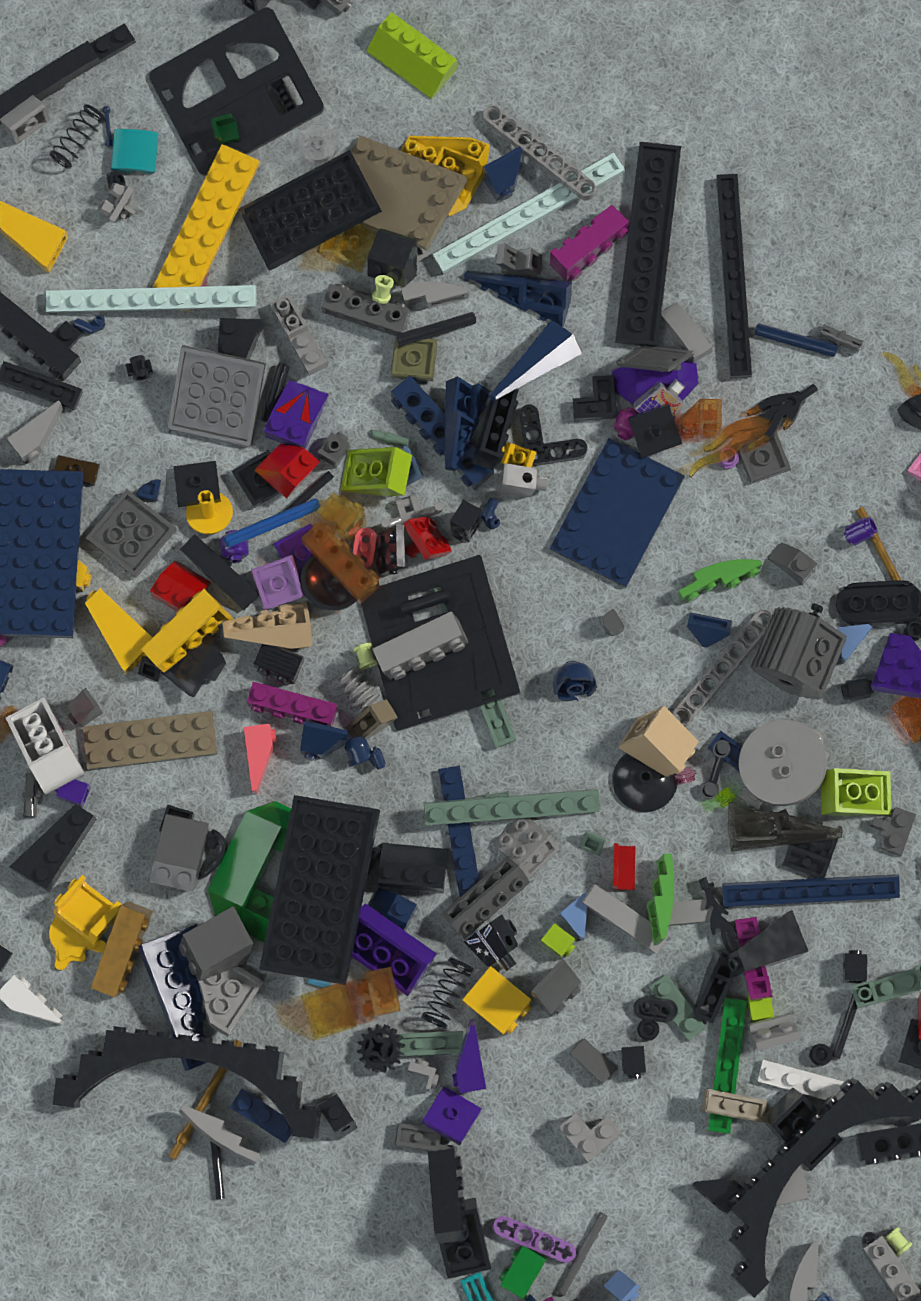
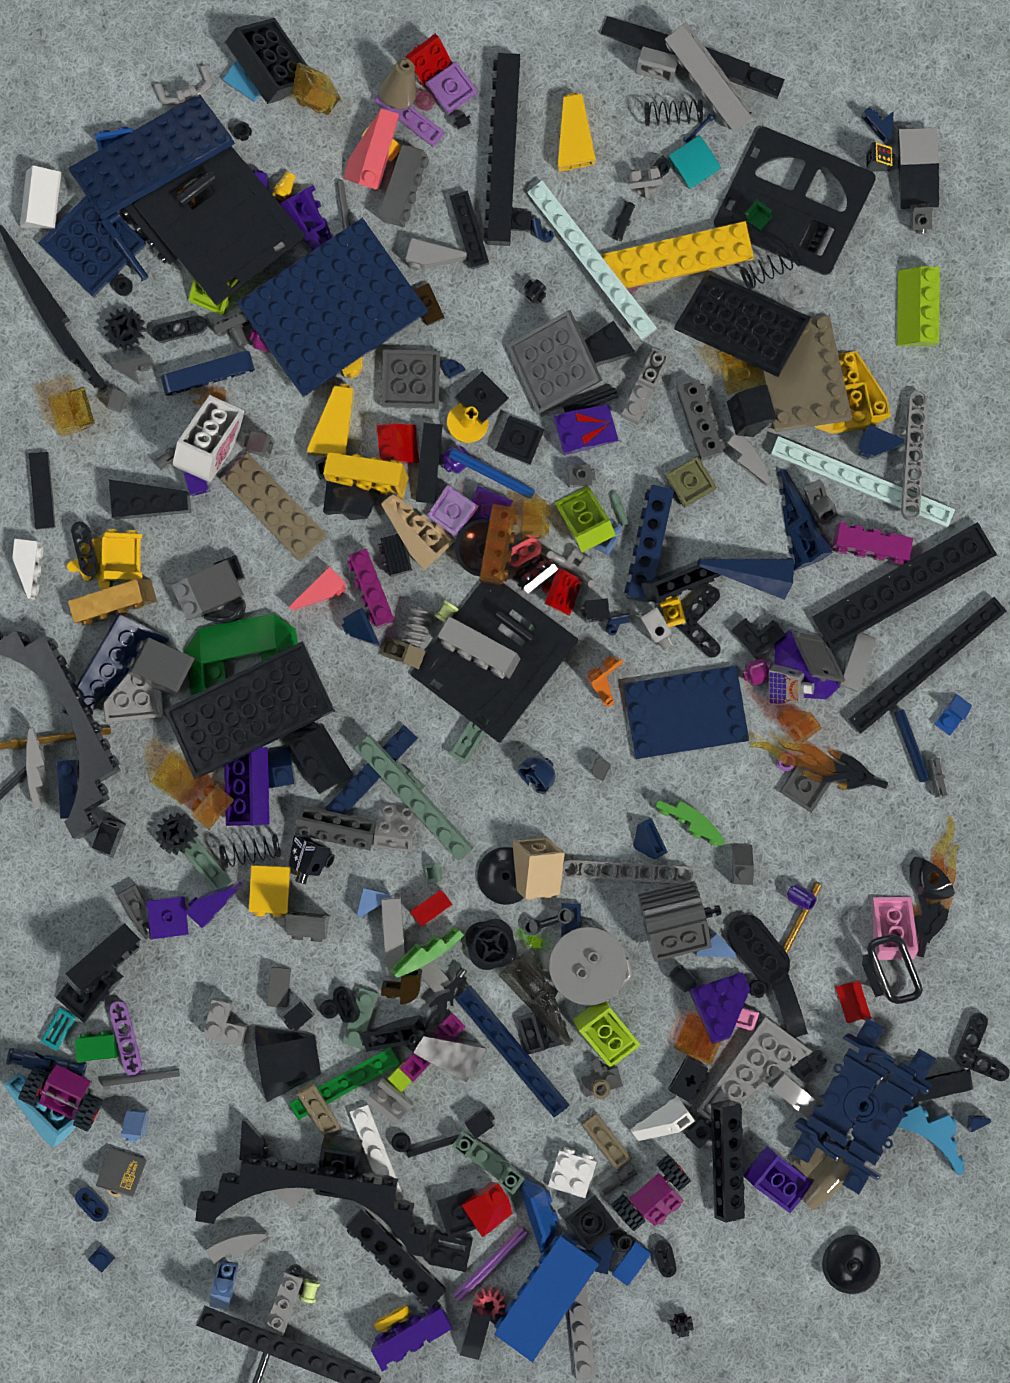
camera: 50 degrees right, 10 degrees up
(37, 937) = (76, 536): none -> black beam
(72, 82) = (709, 76): none -> light grey brick
(137, 248) = (623, 221): none -> black pin
(283, 122) = (791, 250): none -> black piece
(287, 468) = (539, 453): red slope -> none
(311, 490) = (536, 482): black bar -> none
(360, 751) = (374, 661): dark blue piece -> none
(382, 291) = (725, 419): yellowish green bush -> none
(421, 1068) = (184, 872): light grey bracket -> none
(436, 328) = (724, 481): black axle -> none
(462, 412) = (676, 546): dark blue wedge -> none
(530, 564) = (598, 679): none -> orange plate
(558, 941) = (344, 901): lime brick -> none
(655, 430) = (764, 695): black plate -> none
(665, 1104) = (285, 1059): none -> black wedge
(677, 845) = (507, 955): none -> black piece
(683, 942) = (406, 989): none -> dark brown brick
(686, 775) = (529, 905): clear pink plate -> none
(795, 286) = (953, 714): none -> blue slope
(903, 827) = (600, 1095): none -> dark tan plate

